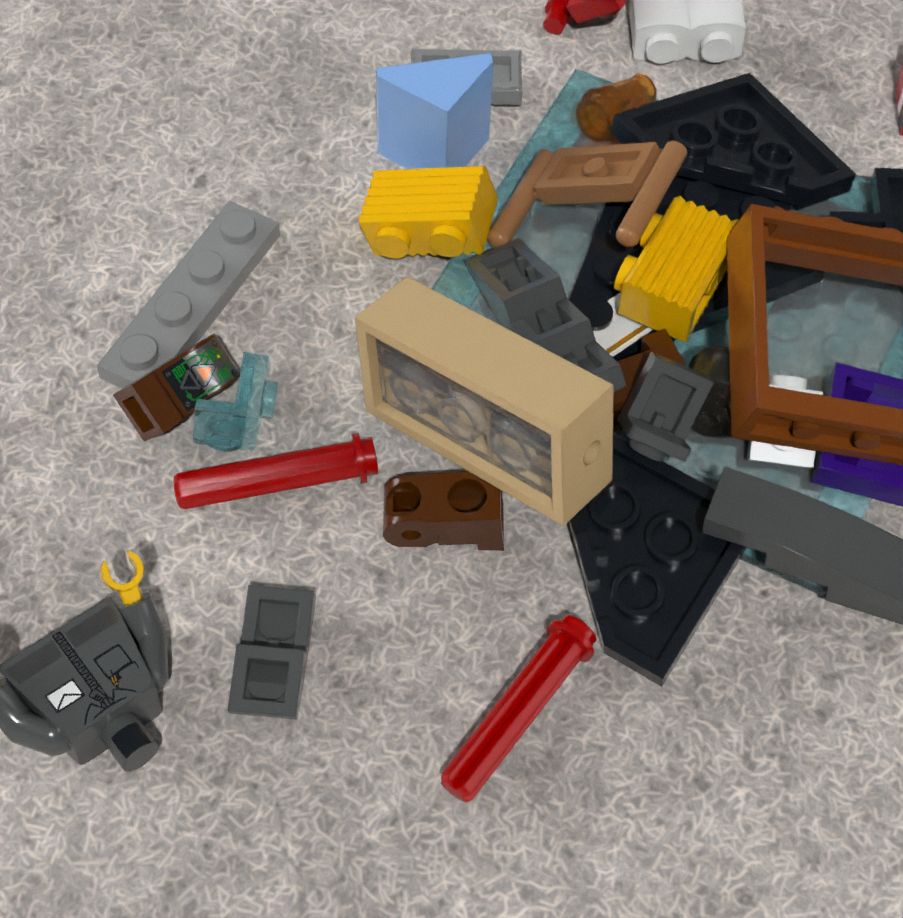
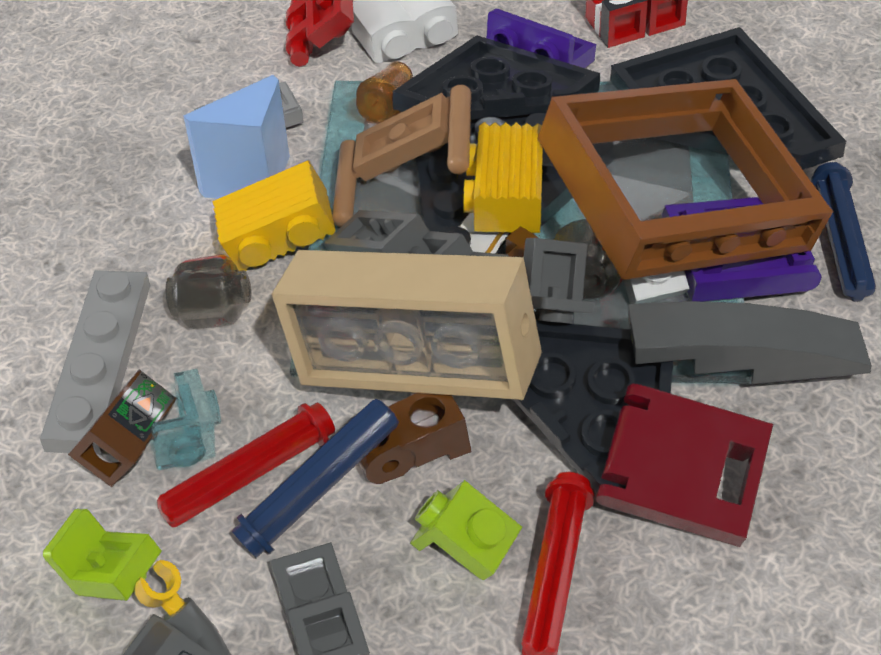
camera: 20 degrees left, 10 degrees down
(94, 514) = (98, 560): none -> lime bracket
(325, 270) = (207, 292): none -> clear smoke head
(327, 519) = (315, 478): none -> dark blue axle
(450, 633) = (466, 528): none -> lime bracket
(689, 650) = (674, 462): none -> dark red container
(819, 105) = (539, 38): none -> dark purple bracket

